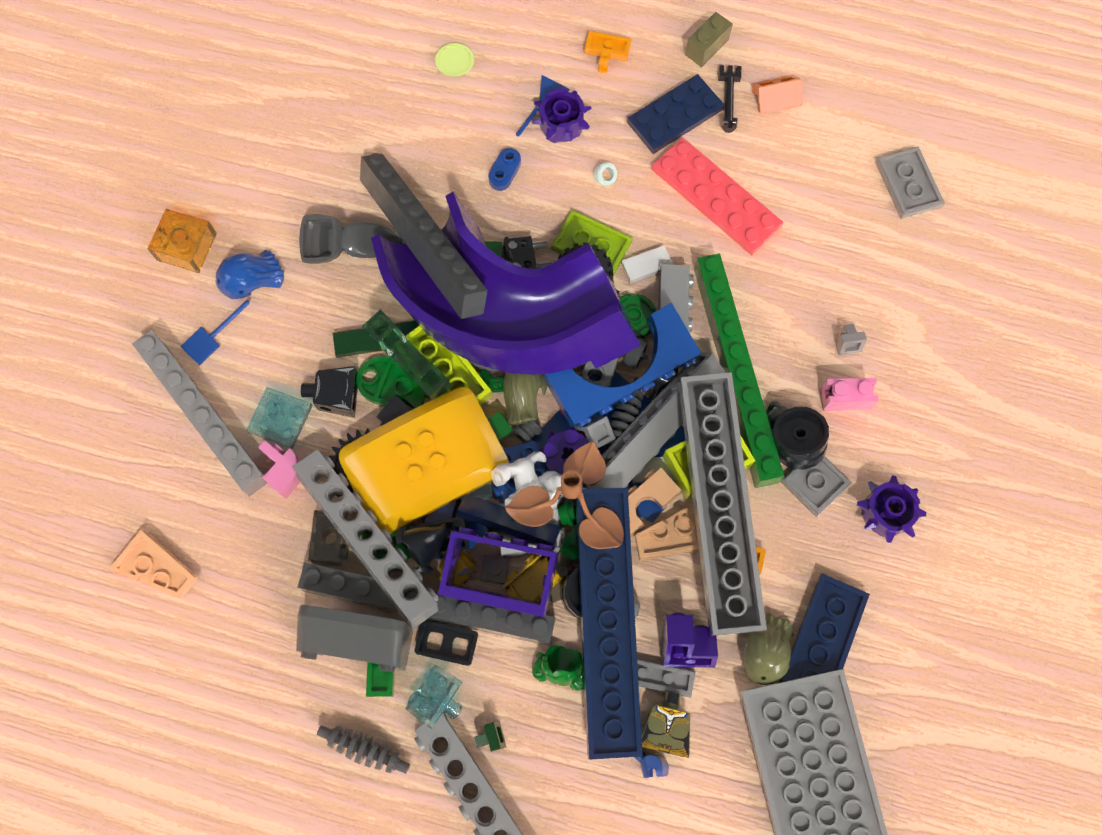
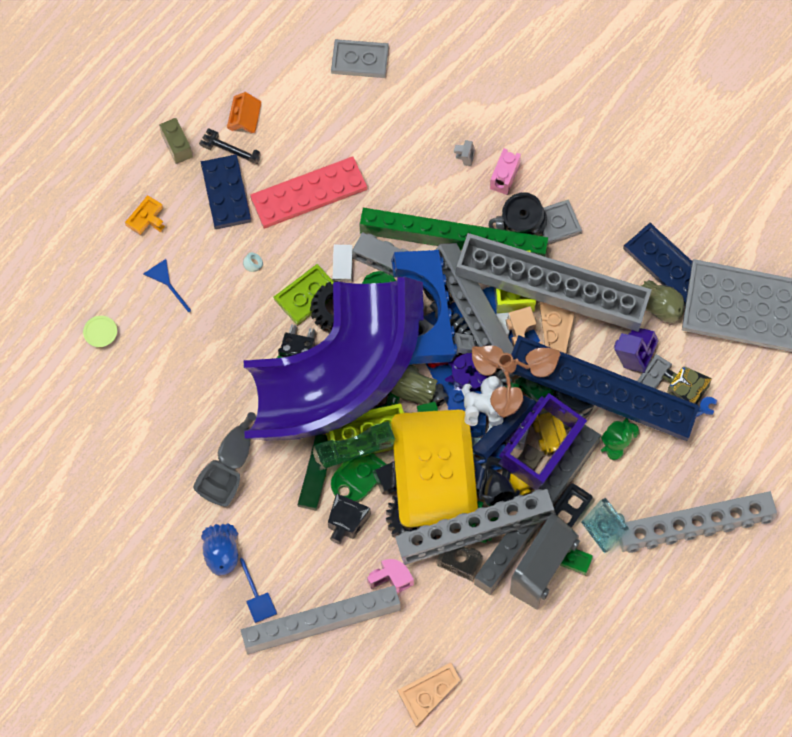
camera: 65 degrees left, 5 degrees down
(182, 240) = (167, 589): clear yellow brick -> none
(279, 417) = (349, 565): clear light blue plate -> none
(363, 749) = (621, 588): dark grey piece -> none
(423, 236) = (259, 400): dark grey brick -> none
(493, 737) = (647, 500): dark green tile -> none
(504, 167) = (213, 331): blue plate -> none
(561, 115) = (192, 271): dark purple brick -> none
(902, 500) = (598, 182): dark purple brick -> none

